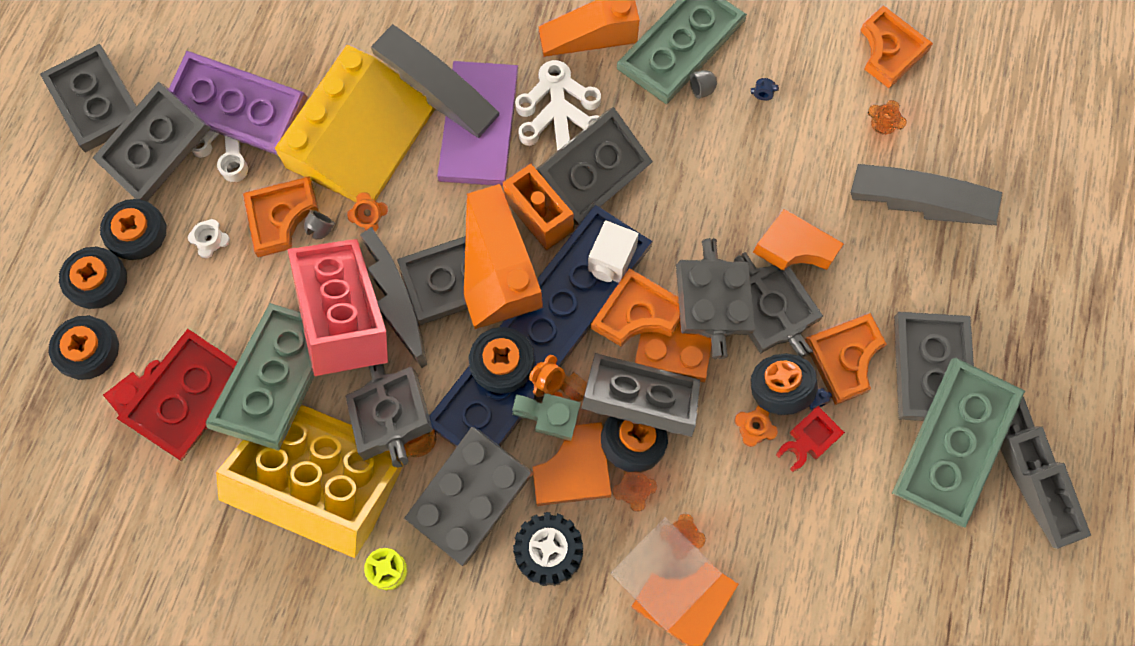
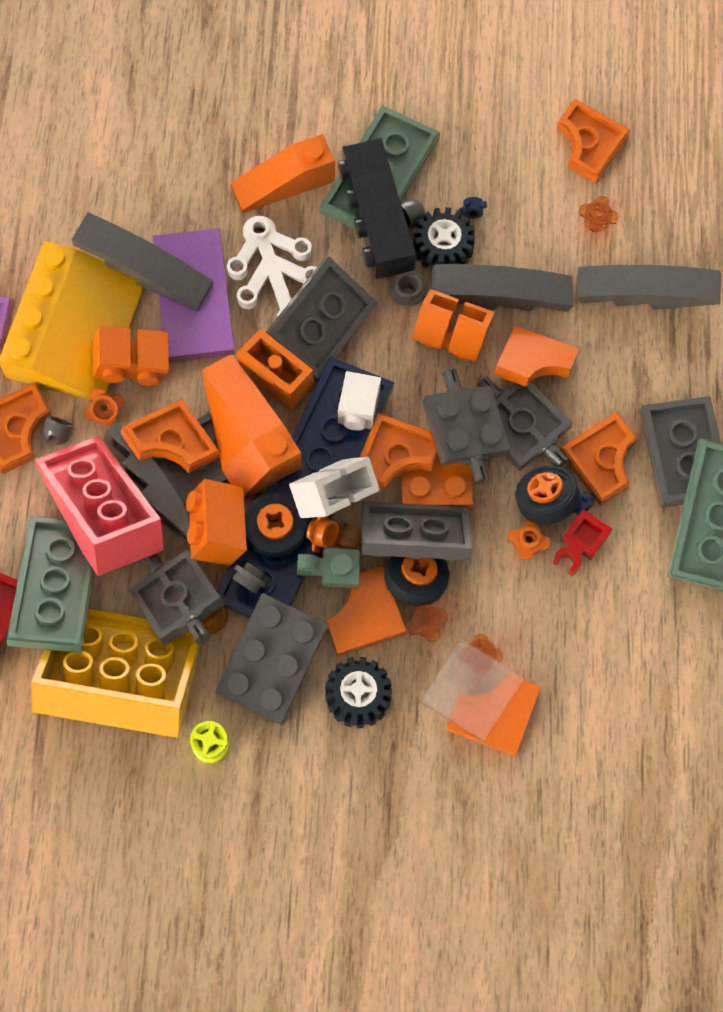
camera: 15 degrees left, 0 degrees up
(419, 172) = (120, 358): none -> orange piece
(423, 250) = (171, 435): none -> orange tile
(443, 346) = (216, 522): none -> orange brick
(463, 408) = (249, 577): none -> dark grey plate
(576, 331) = (334, 487): none -> white piece
(672, 72) = (378, 209): none -> black brick
(688, 147) = (411, 281): none -> dark grey plate
(706, 188) = (436, 319): none -> orange piece
(732, 103) = (443, 228): none -> black wheel
(778, 167) = (503, 285): none -> dark grey slope

